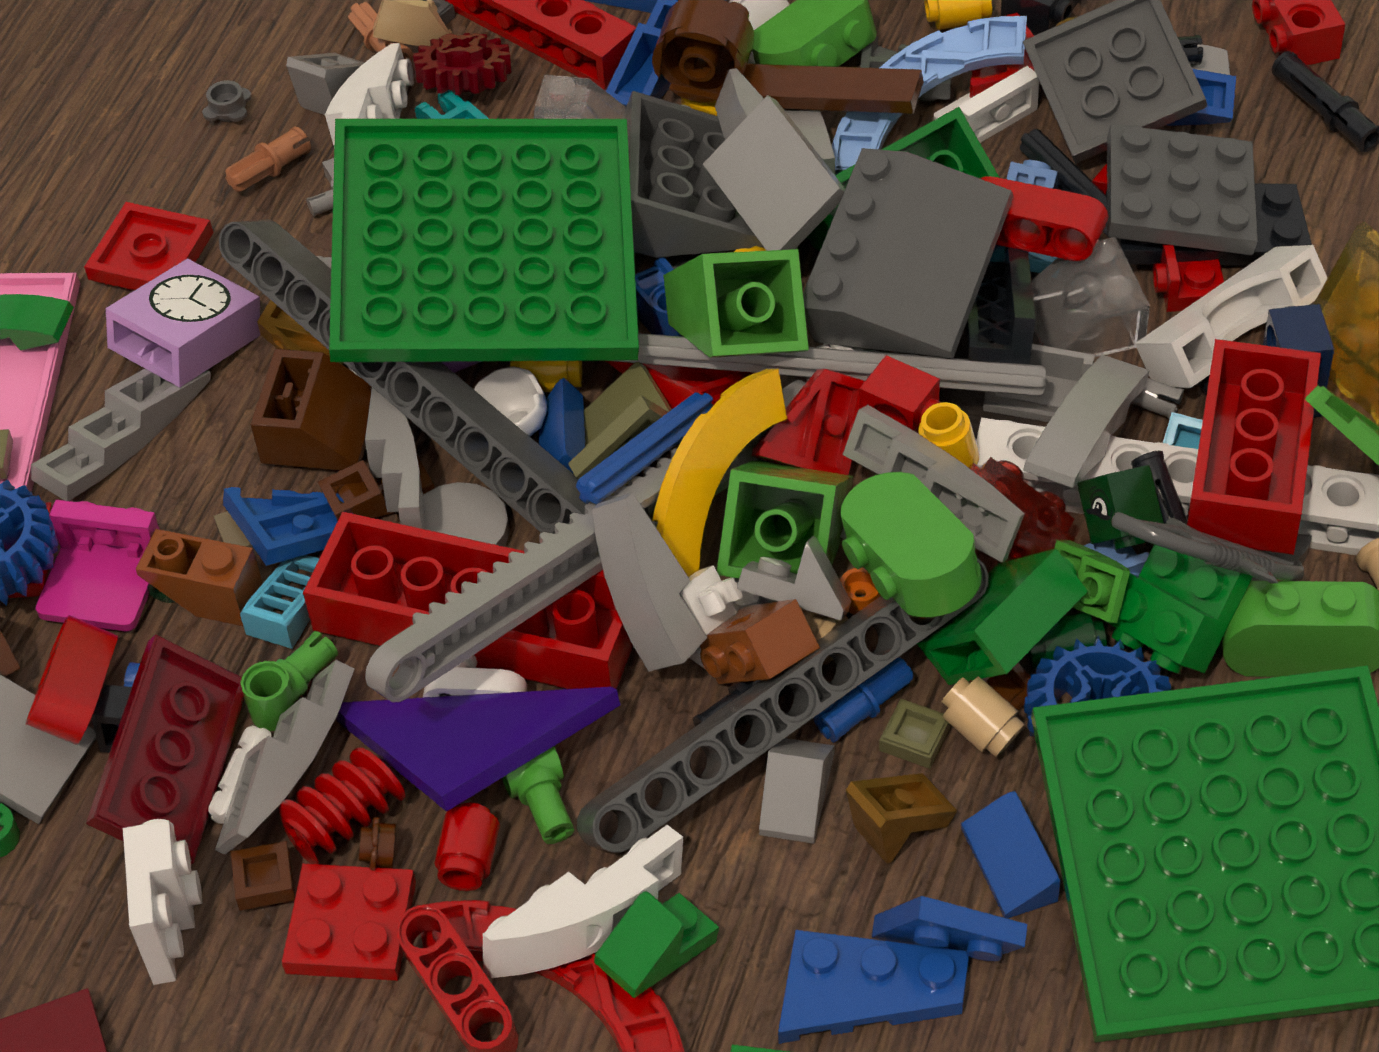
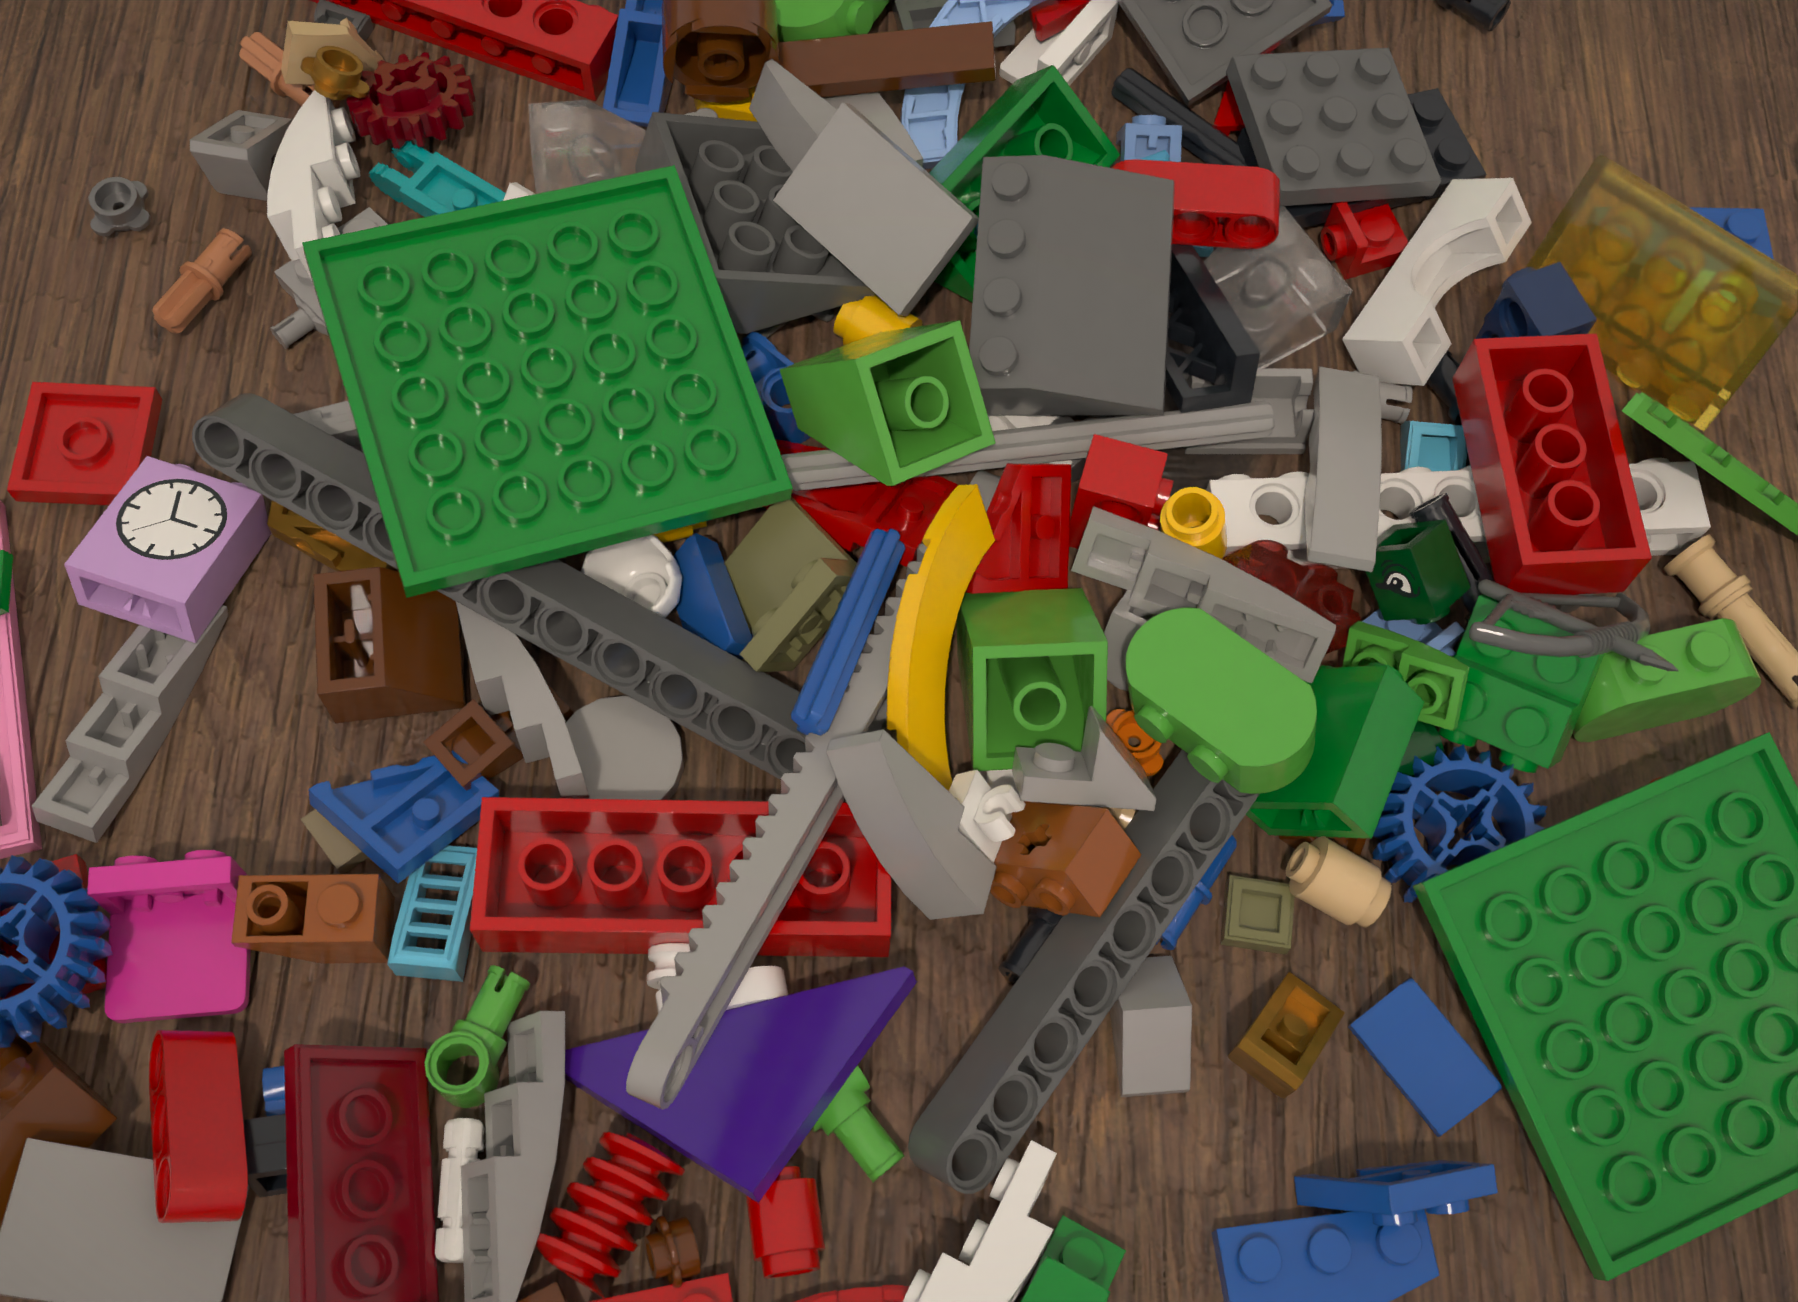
camera: 25 degrees left, 15 degrees up
(409, 33) = (336, 73): none -> pearl gold plate

